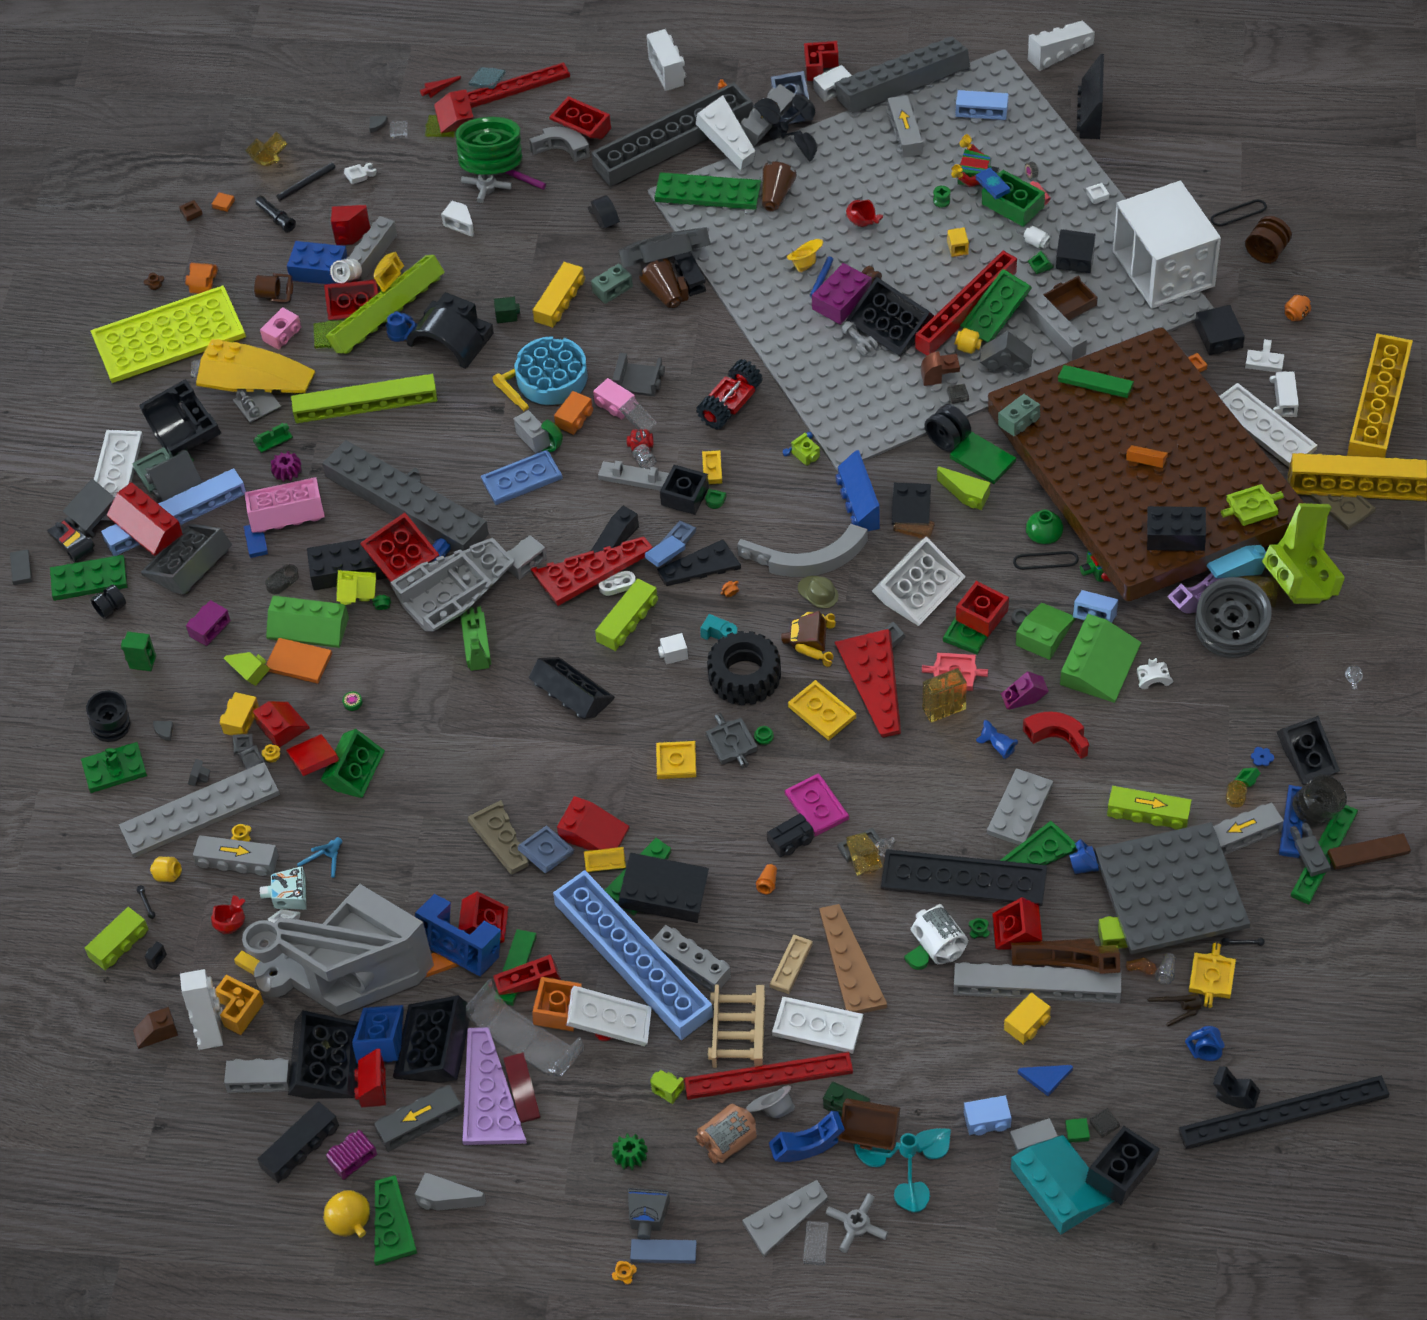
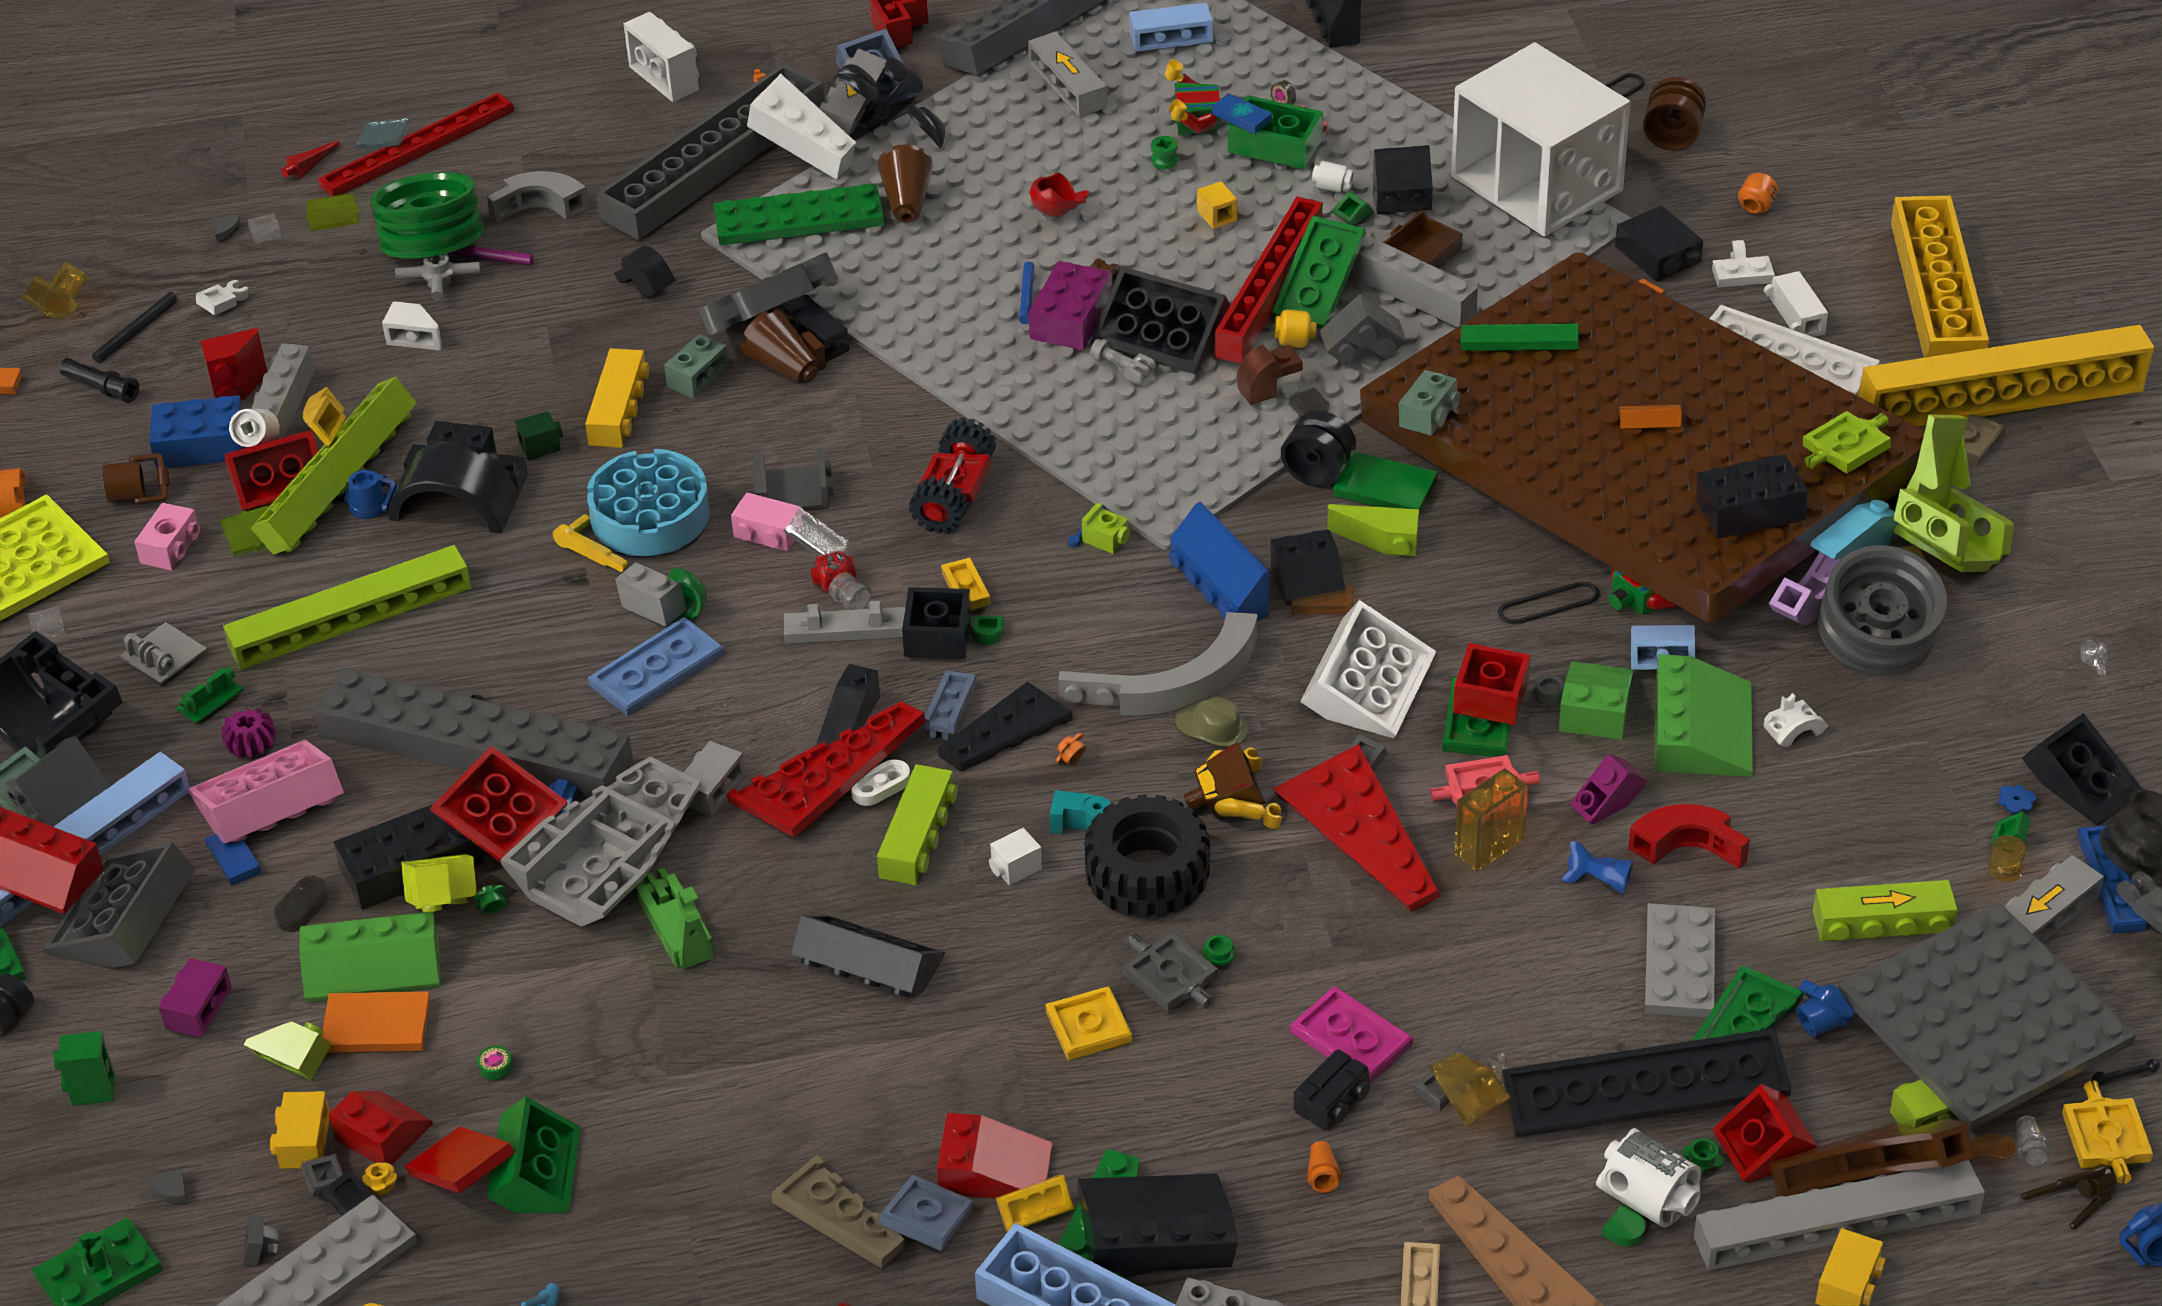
camera: 20 degrees left, 10 degrees down
(108, 716) = (63, 1184): black wheel -> none
(247, 367) = (120, 599): yellow wedge -> none
(453, 110) = (348, 184): red slope -> none
(573, 412) = (710, 552): orange brick -> none
(582, 118) = (561, 153): red slope -> none
(665, 551) = (944, 715): medium blue tile -> none
(805, 255) = (992, 265): yellow piece -> none
(822, 710) = (1298, 891): yellow plate -> none
(825, 85) = (921, 45): white brick -> none
(1044, 527) = (1526, 554): green piece -> none
(1097, 193) = (1395, 105): white plate -> none

